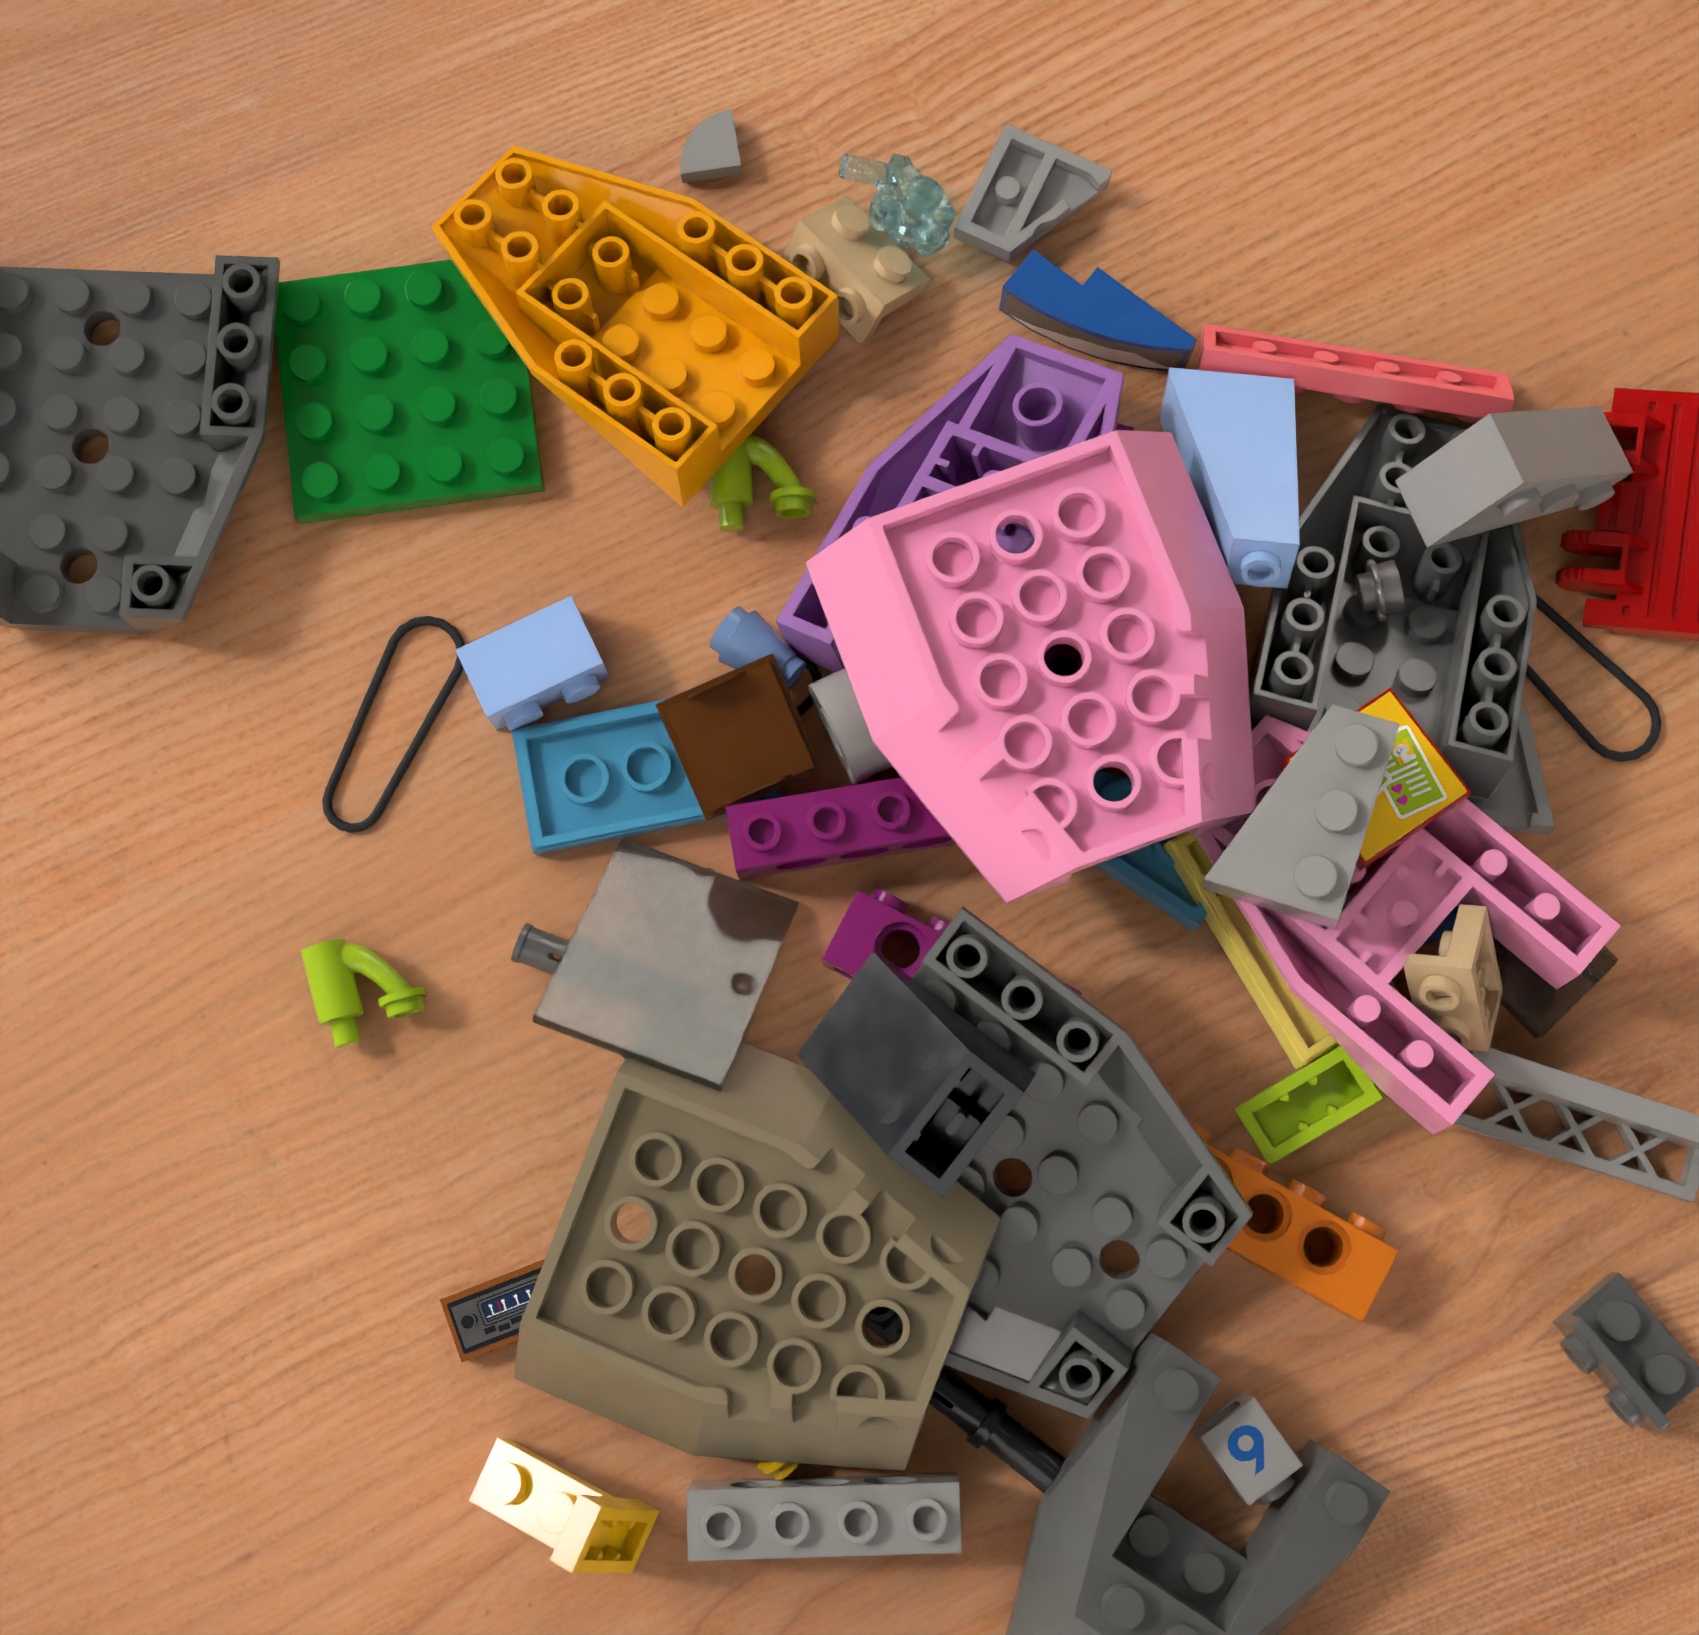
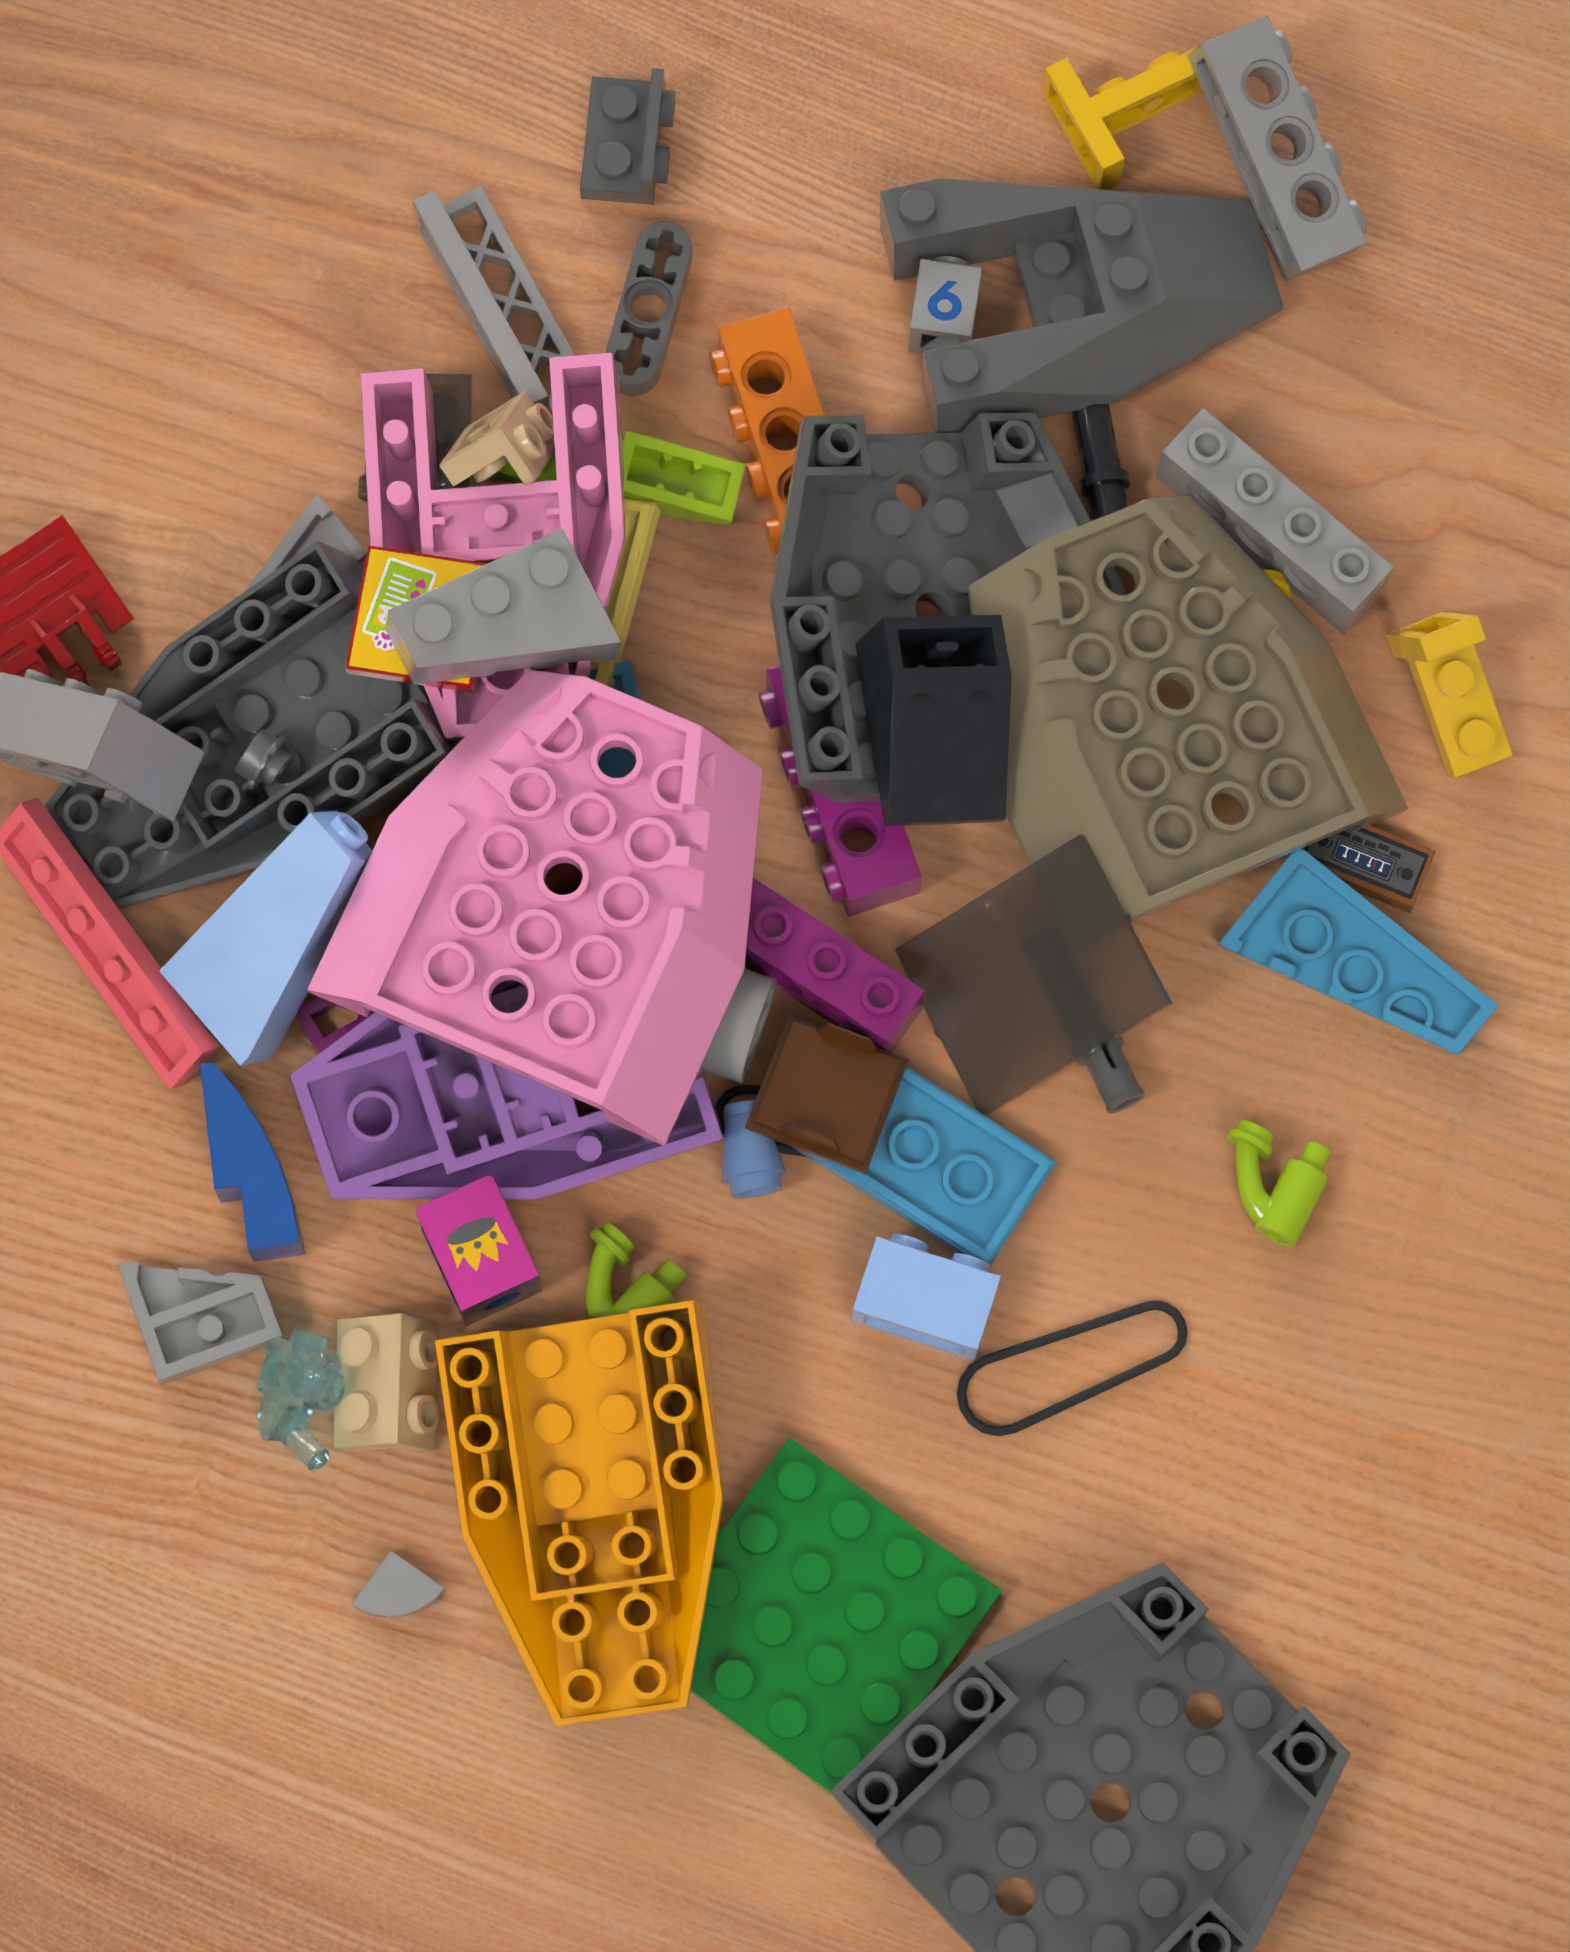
camera: 140 degrees left, 5 degrees down
(448, 1220) = (1348, 949): none -> dark azure wing
(873, 398) = (478, 1250): none -> dark pink piece
(1479, 1278) = (675, 273): none -> dark grey beam
(1616, 672) = (145, 565): black piece -> none

